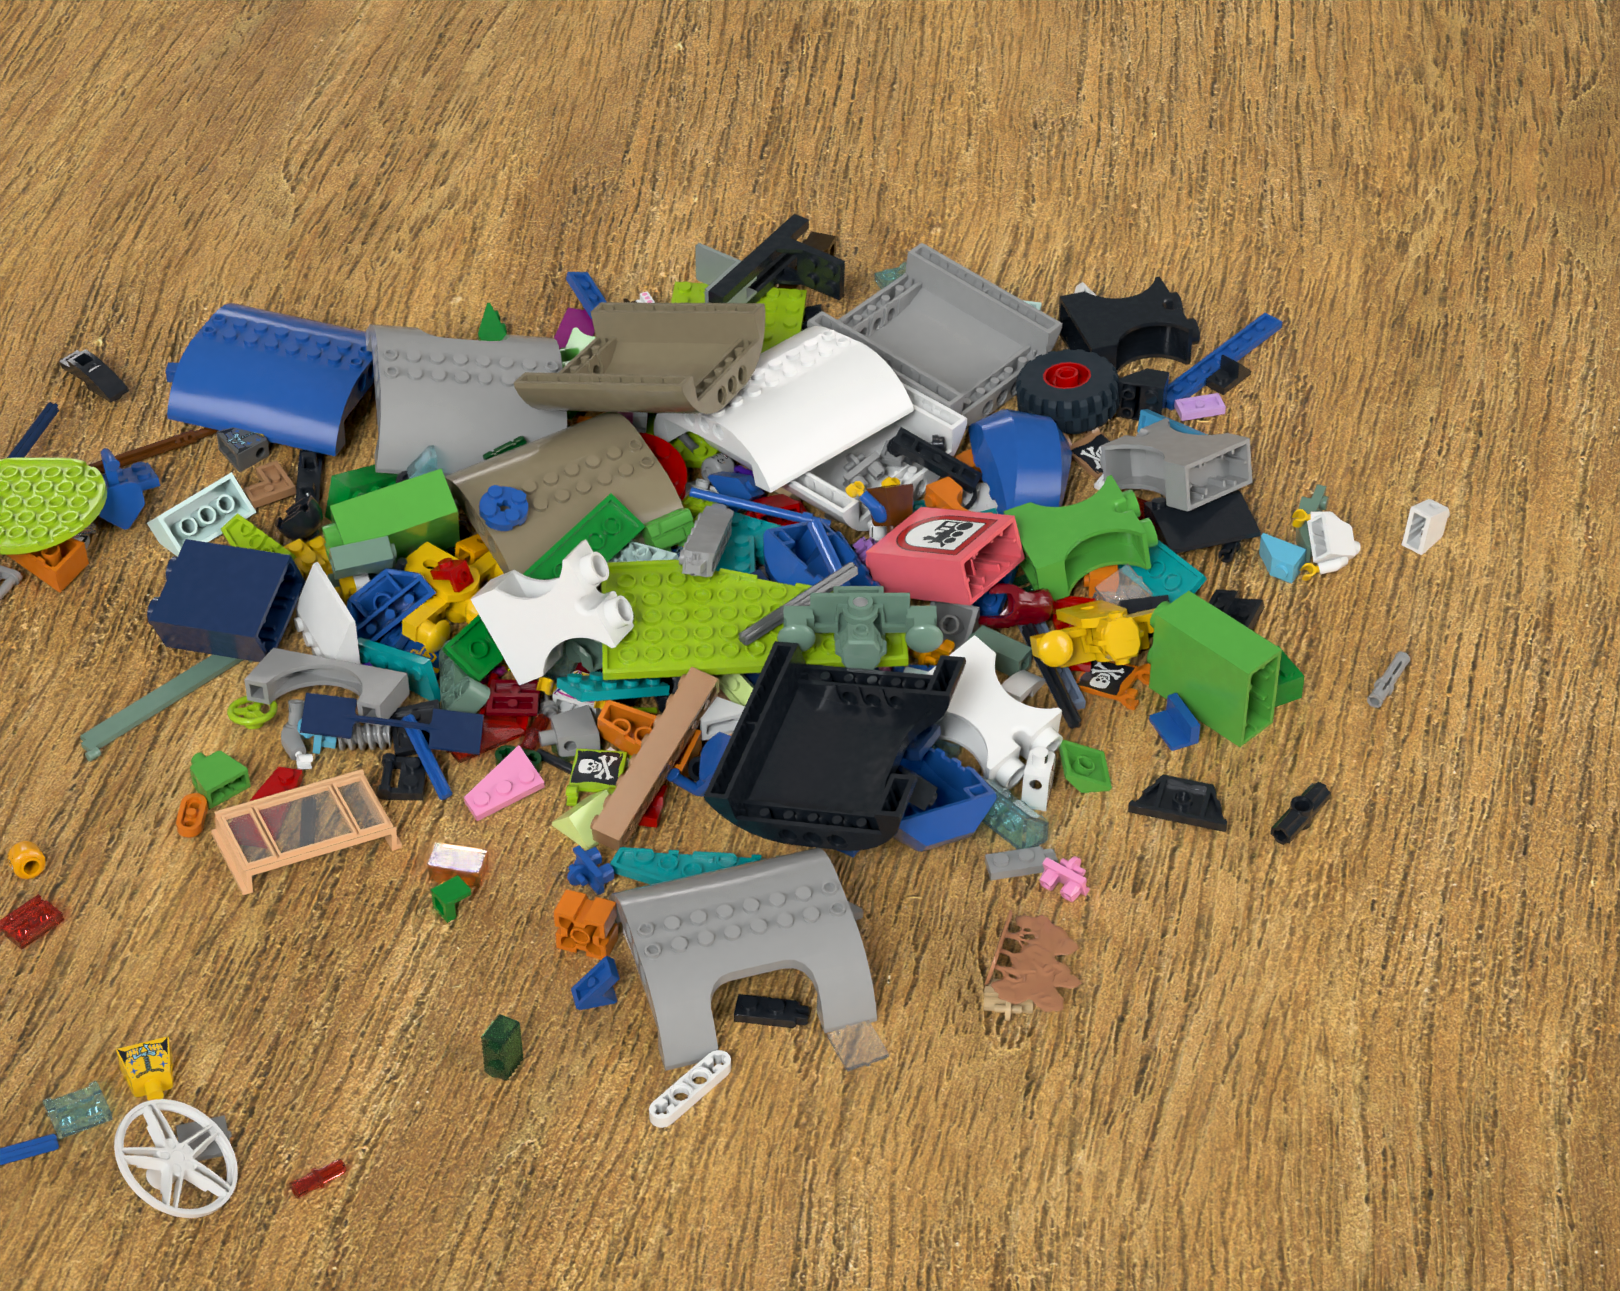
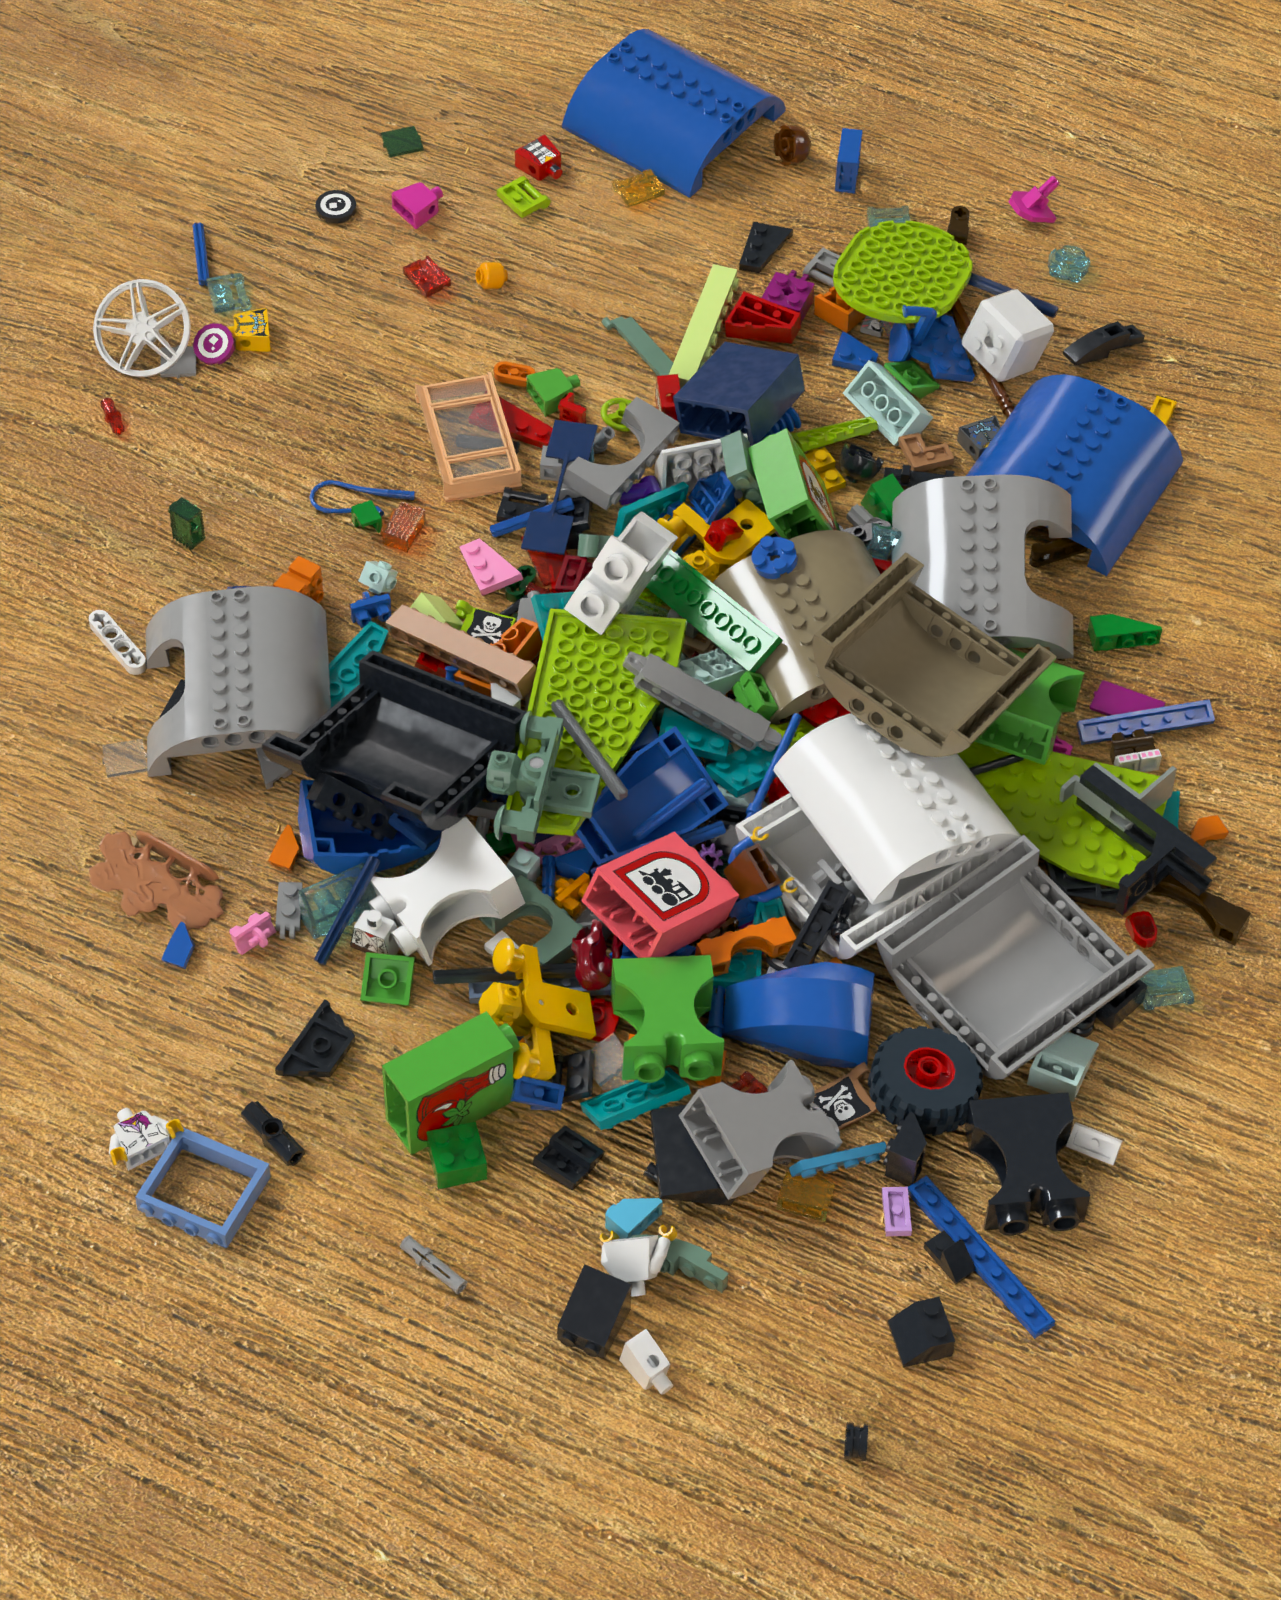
camera: 100 degrees right, 10 degrees up
(45, 607) = (791, 292): none -> magenta hinge
(85, 619) = (762, 320): none -> red wedge
(104, 665) = (705, 322): none -> yellowish green brick
(112, 414) = (1007, 335): none -> white plate
(122, 555) = (852, 353): none -> blue wing
(159, 503) = (913, 377): none -> bright green slope
(177, 337) = (1163, 409): none -> yellow tile
(181, 1087) = (214, 344): none -> magenta tile
(225, 673) = (667, 385): none -> red torso
(251, 753) = (570, 411): none -> red bracket
(333, 759) = (550, 467): none -> light grey brick
(400, 902) = (401, 494): none -> blue piece
(543, 867) = (378, 576): none -> light aqua brick
(853, 291) = (1142, 928): none -> rock
(944, 874) = (285, 850): none -> orange slope
(1025, 793) = (347, 910): none -> dark blue axle
(1103, 933) = (179, 947): none -> blue slope
(1313, 377) = (922, 1333): none -> black slope
(1352, 910) = (140, 1137): none -> white torso
(1379, 885) = (221, 1155): none -> medium blue window
(1395, 561) = (595, 1312): none -> black slope
(1437, 401) = (855, 1441): none -> black wheel

